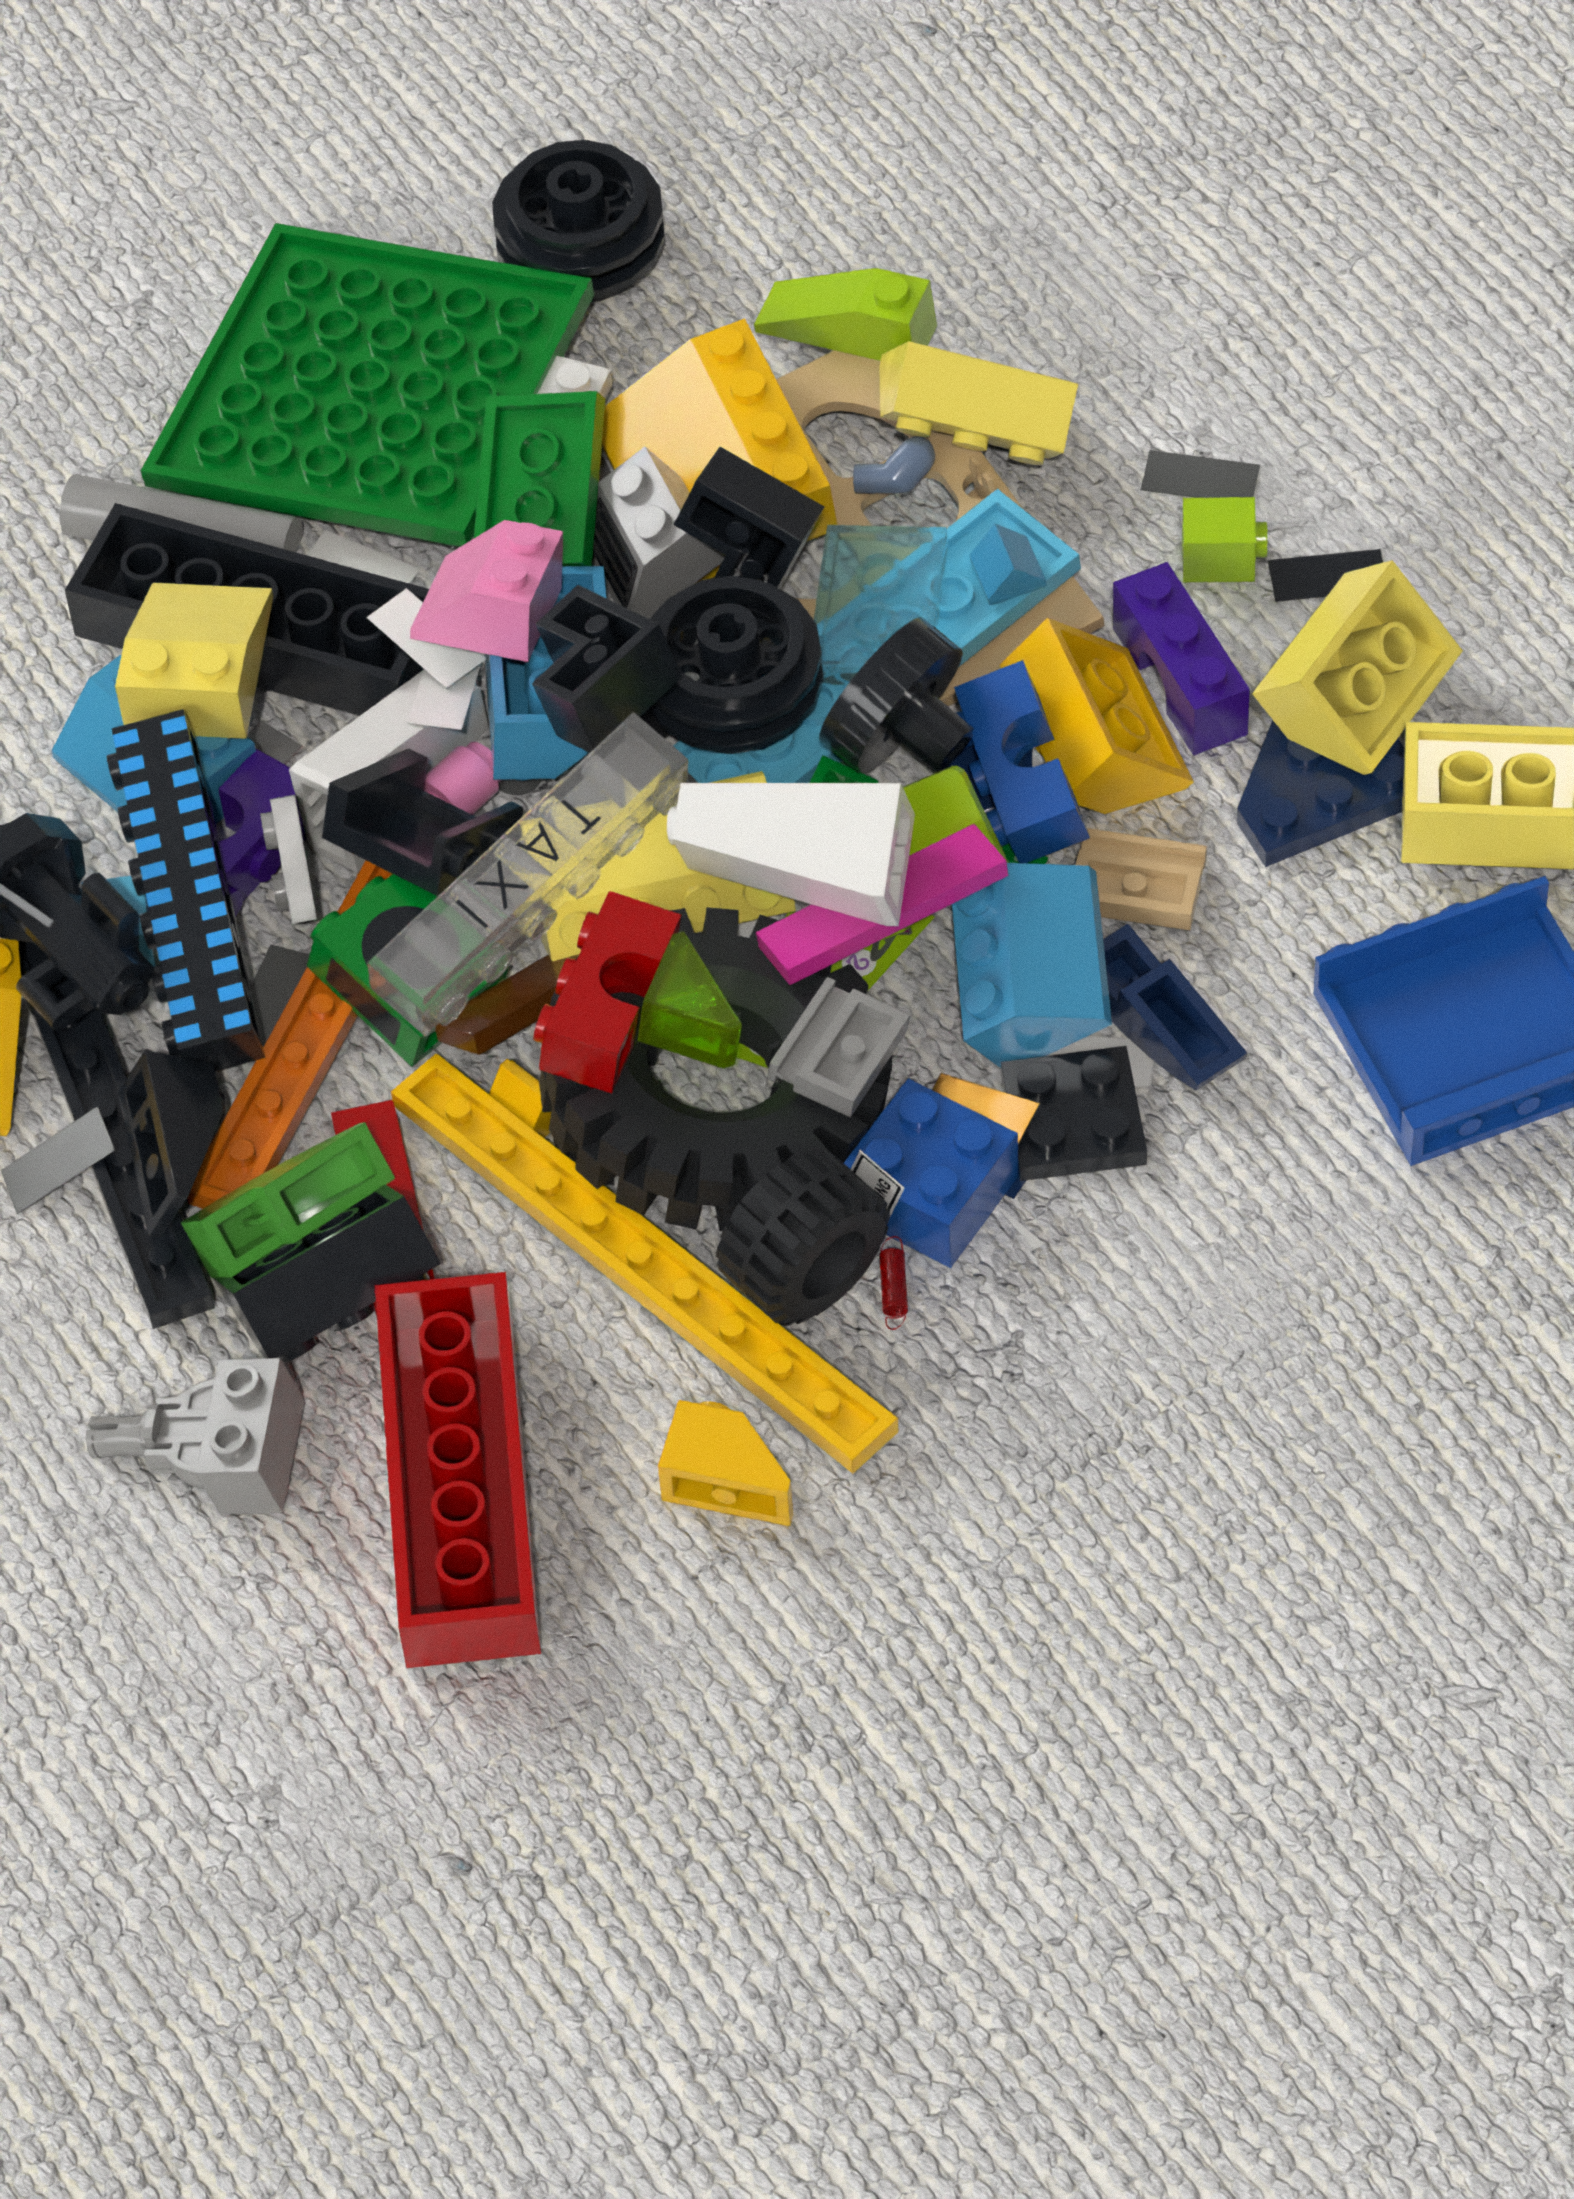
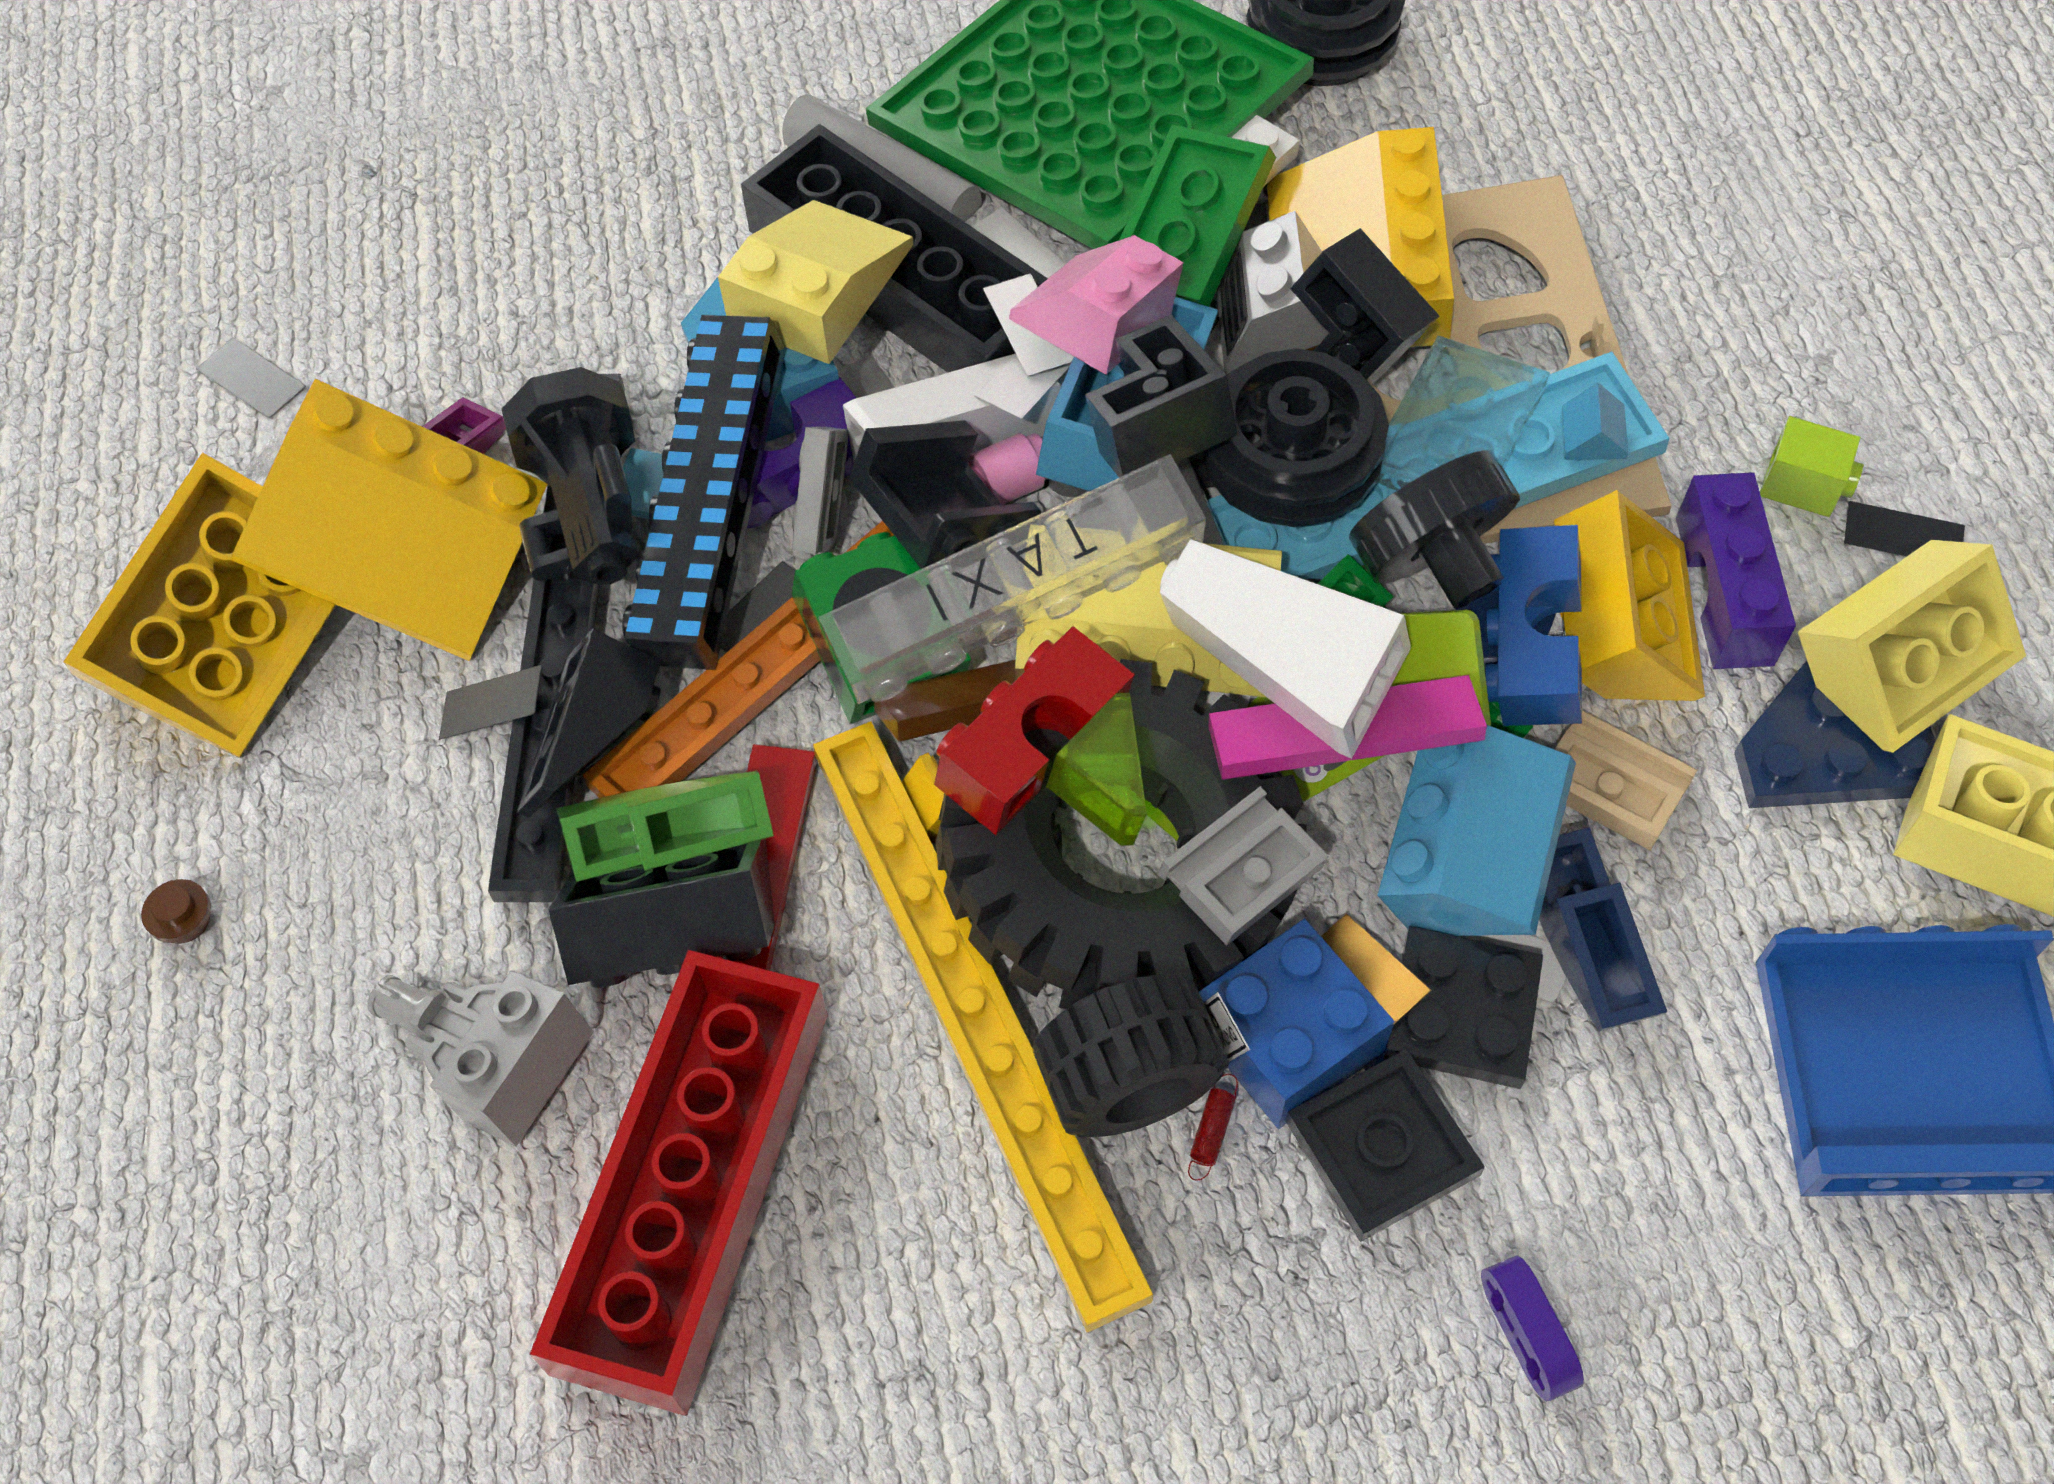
camera: 20 degrees right, 5 degrees up
(722, 1465) = (951, 1270): yellow slope -> none
(851, 311) = (1539, 155): lime slope -> none
(900, 471) = (1526, 308): sand blue arm -> none
(975, 402) = (1622, 265): light yellow slope -> none
(1045, 1242) = (1384, 1144): none -> black plate
(1198, 476) = (1807, 400): dark grey sticker -> none
(1220, 1334) = (1532, 1328): none -> dark purple beam

